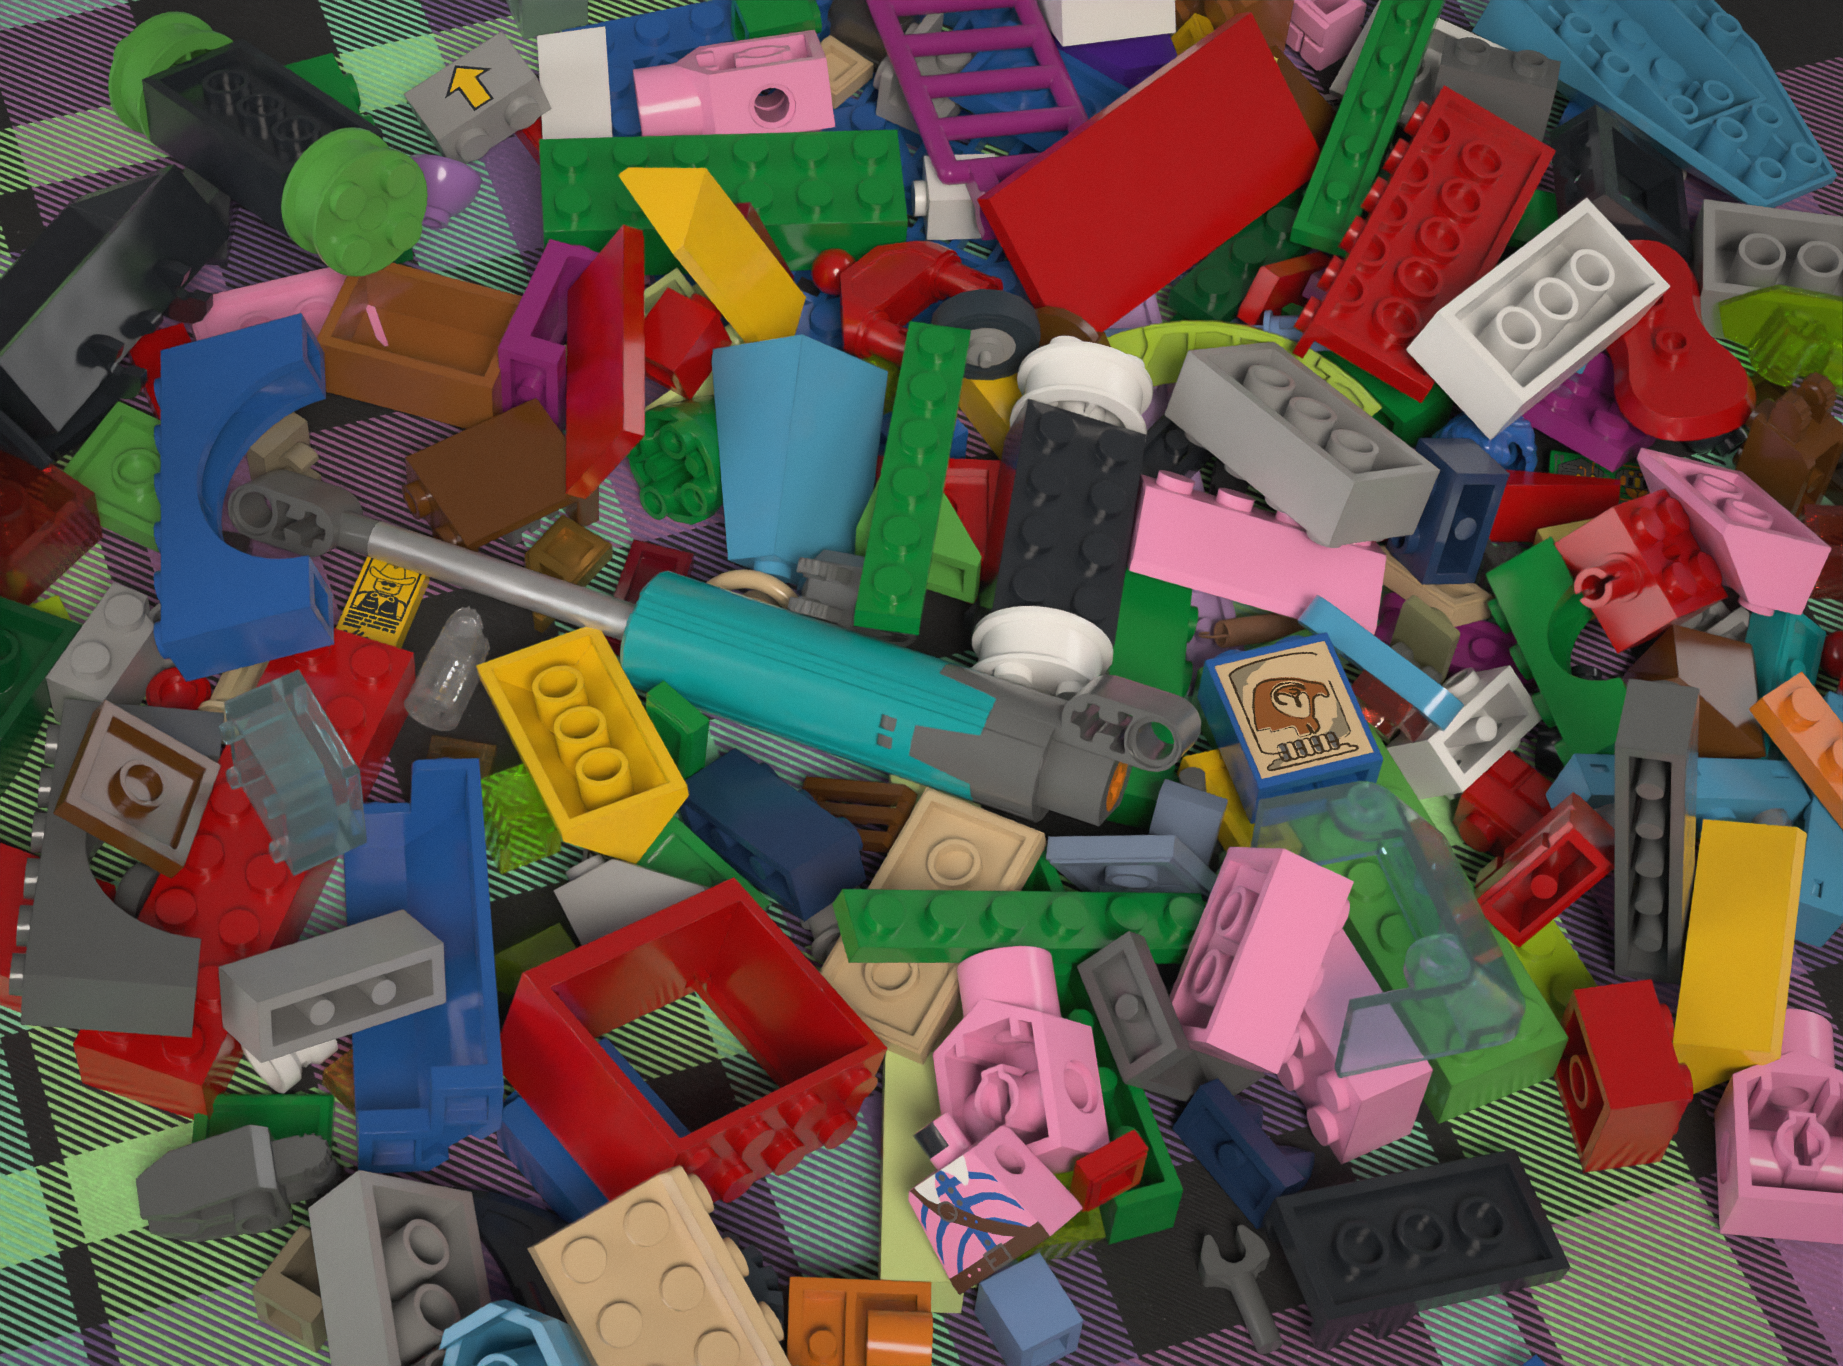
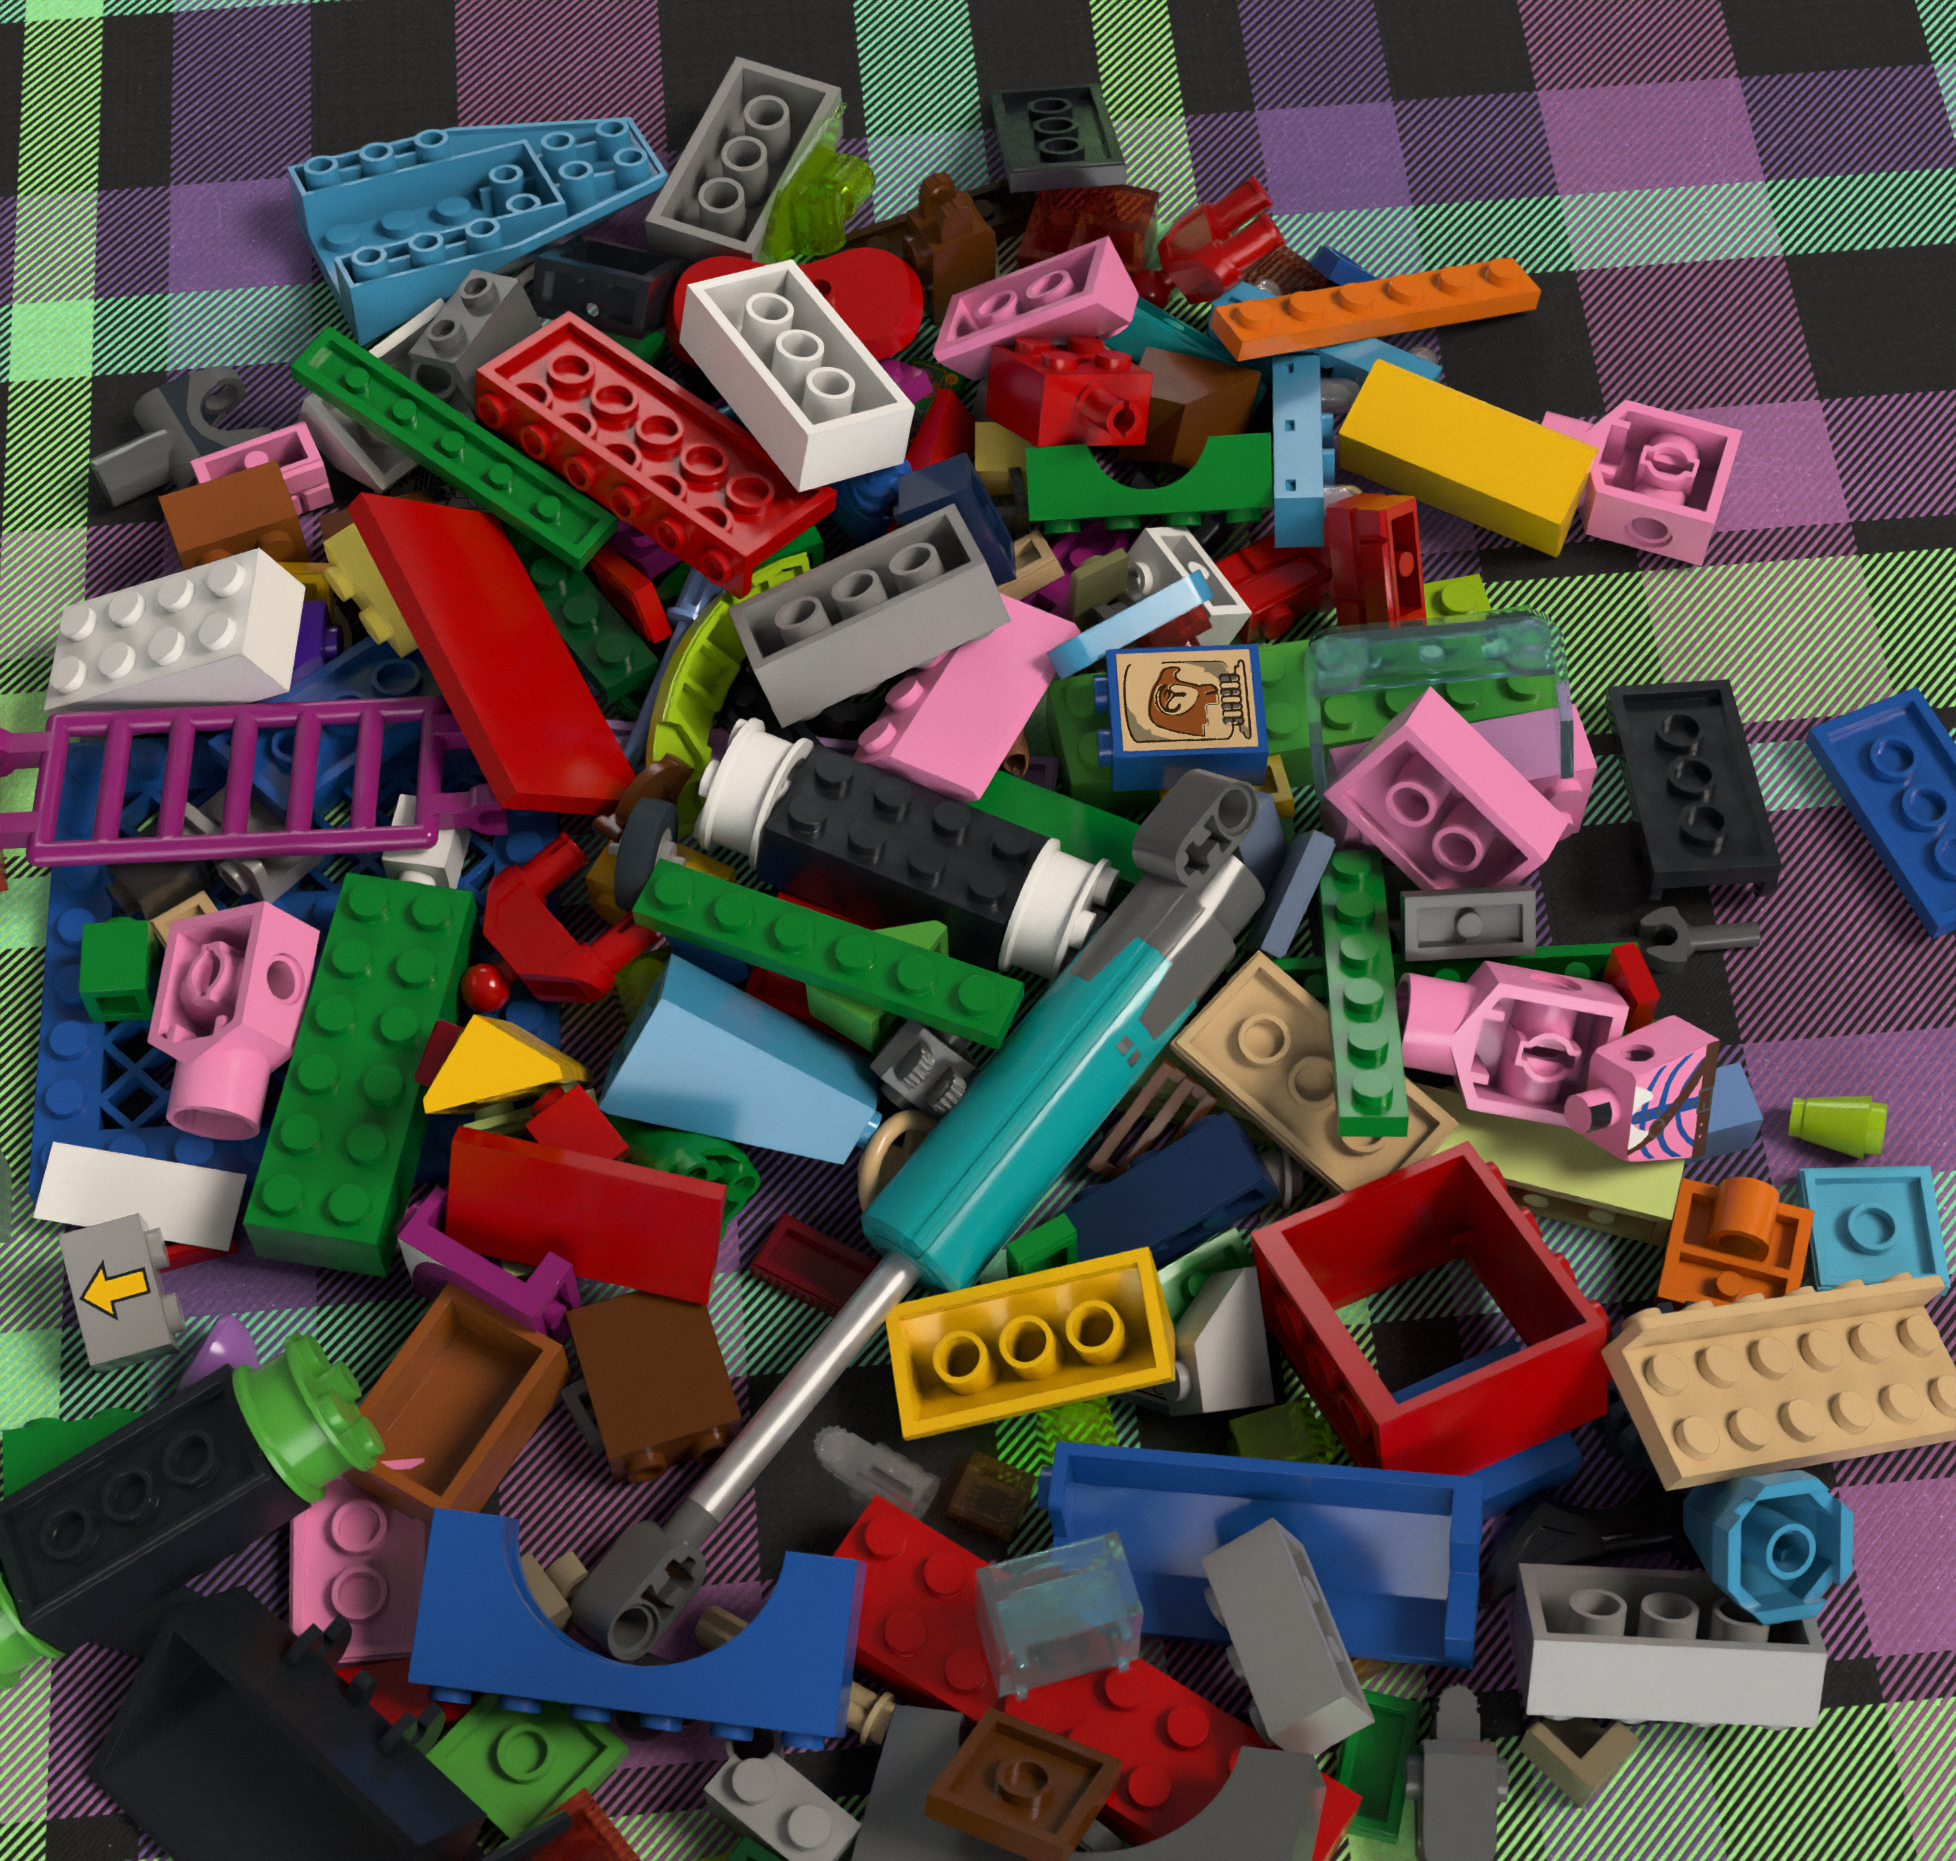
camera: 70 degrees left, 5 degrees up
(171, 690) = (837, 1768): red tile -> none
(383, 602) = (765, 1527): yellow tile -> none
(568, 554) = (755, 1342): pearl gold tile -> none
(1238, 1154) = (1584, 895): dark blue tile -> none
(1621, 1075) = (1575, 573): red brick -> none
(1655, 828) = (1413, 427): dark grey brick -> none

